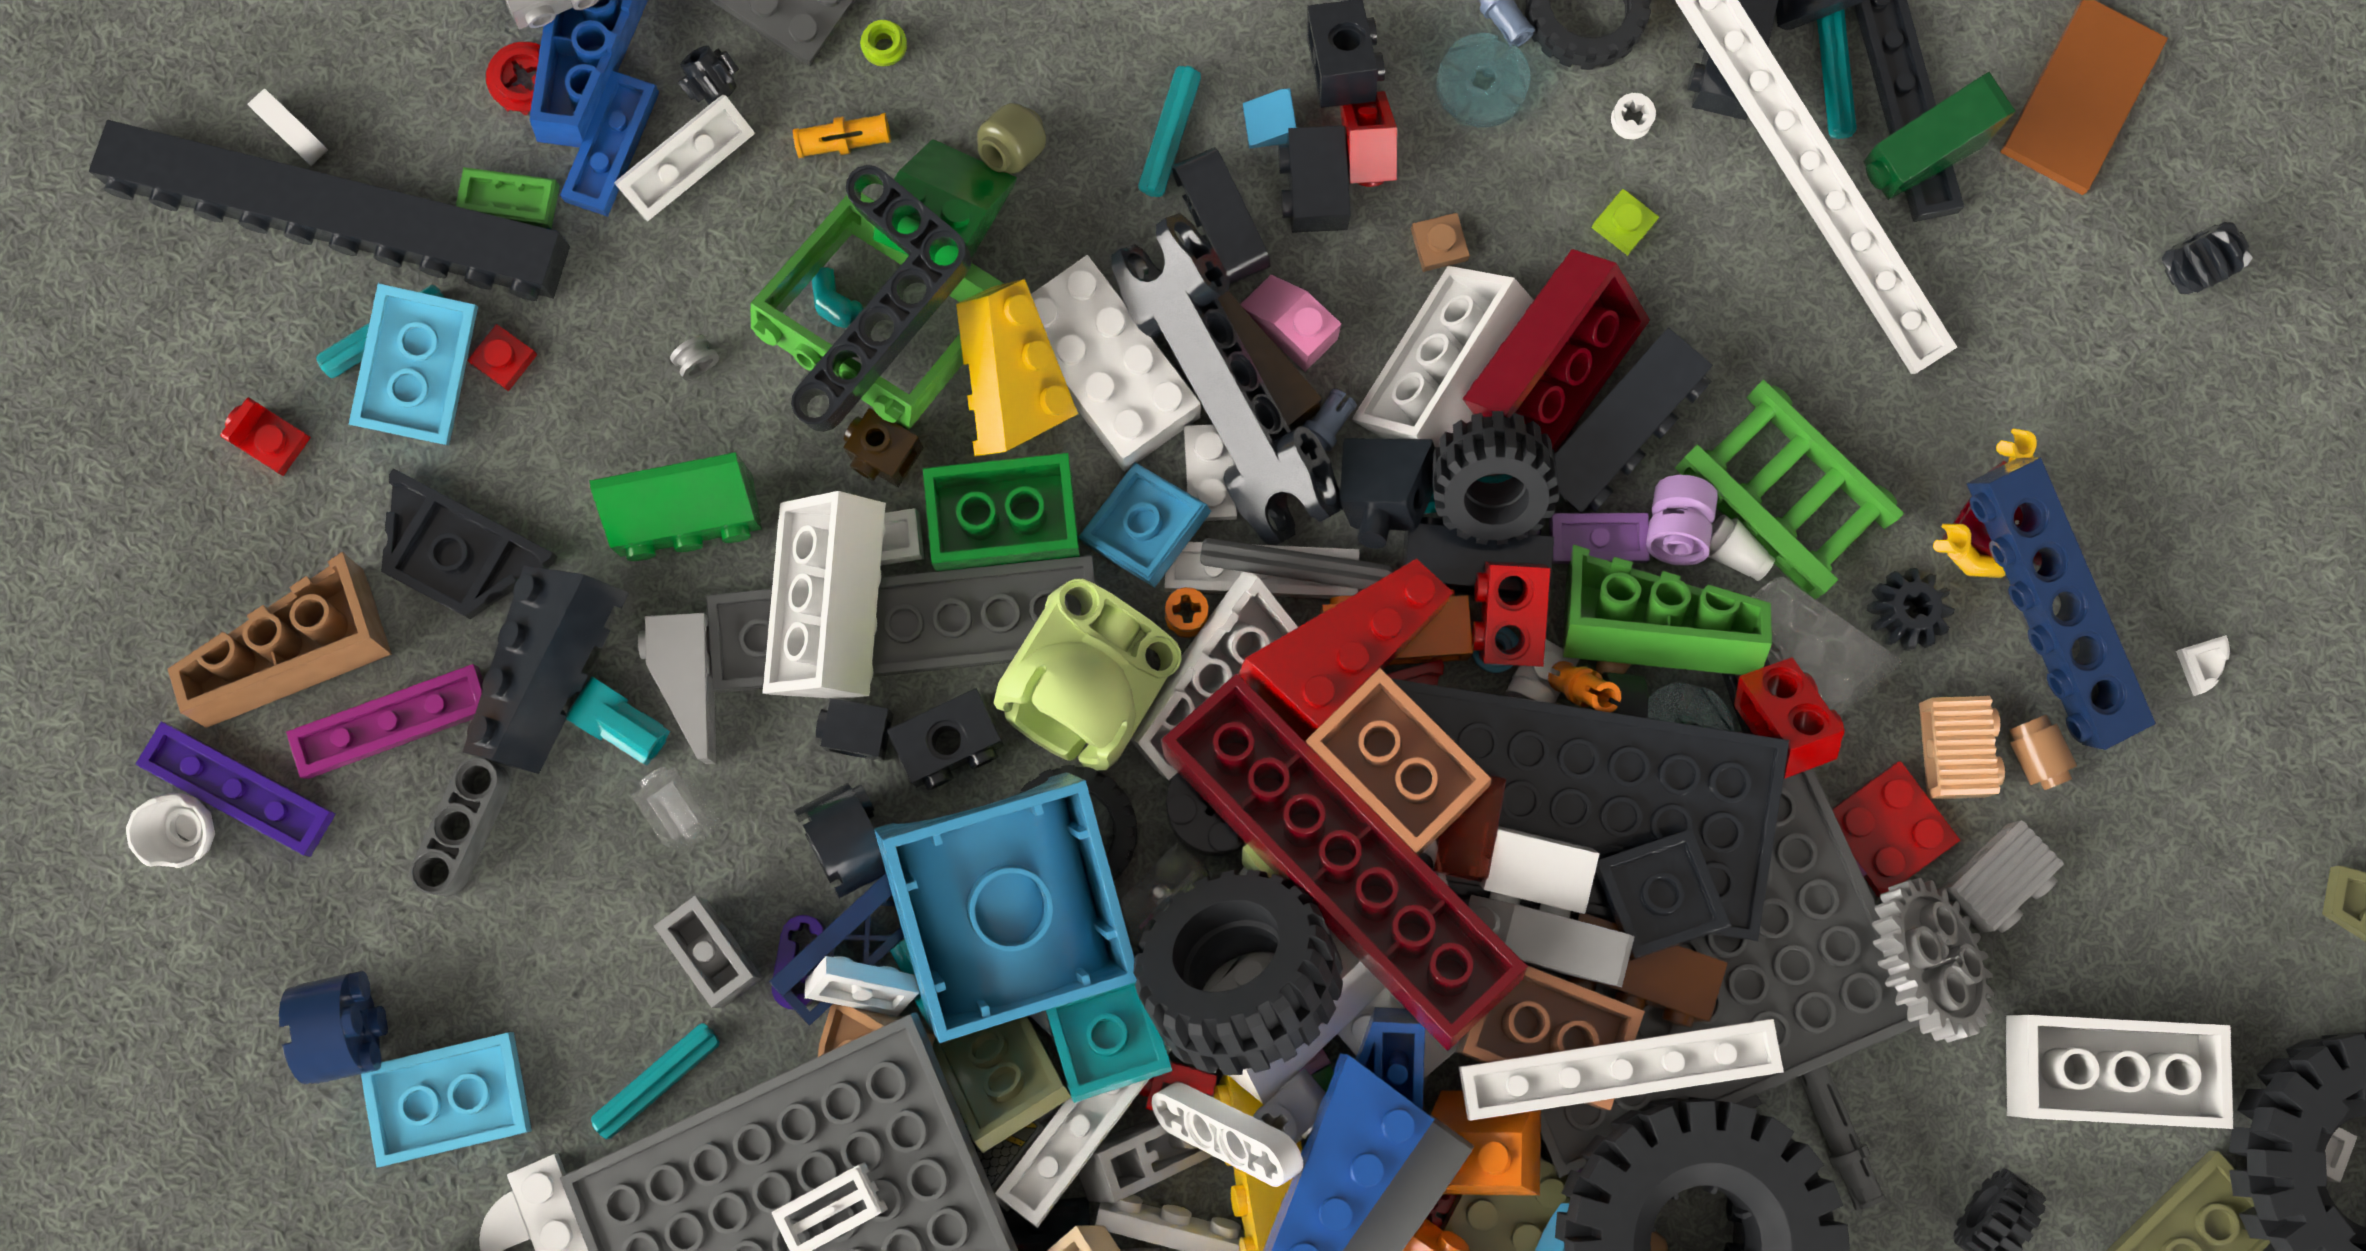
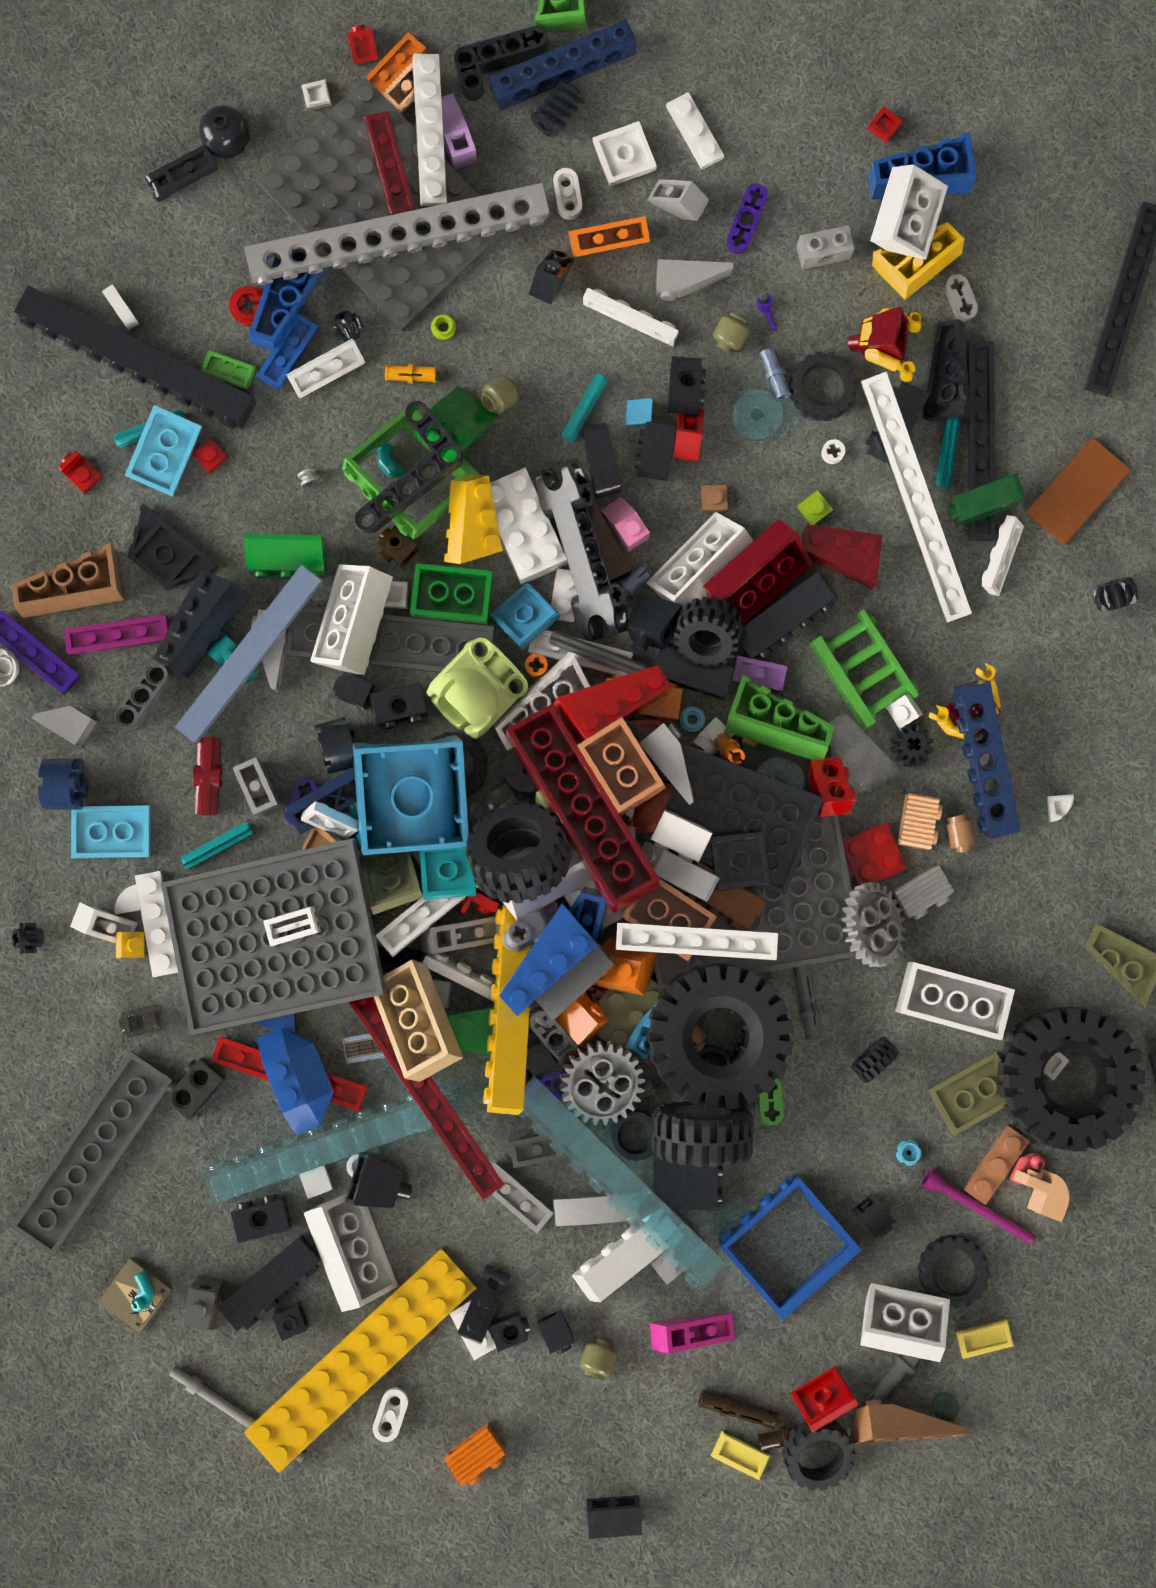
camera: 10 degrees right, 5 degrees up
(325, 908) = (68, 723): none -> light grey slope
(610, 951) = (207, 776): none -> dark red piece
(642, 706) = (248, 654): none -> sand blue tile
(676, 808) = (255, 711): clear brick -> none
(1227, 1134) = (495, 930): white beam -> none
(1481, 722) = (668, 755): none -> light grey slope
(1525, 612) = (708, 704): red brick -> none
(1682, 520) = (803, 673): lavender wheel -> none
(1705, 286) = (845, 552): none -> dark red wedge
(1739, 549) = (829, 693): white cone -> none
(1880, 549) = (904, 710): none -> white plate
(1982, 233) = (1002, 555): none -> white plate

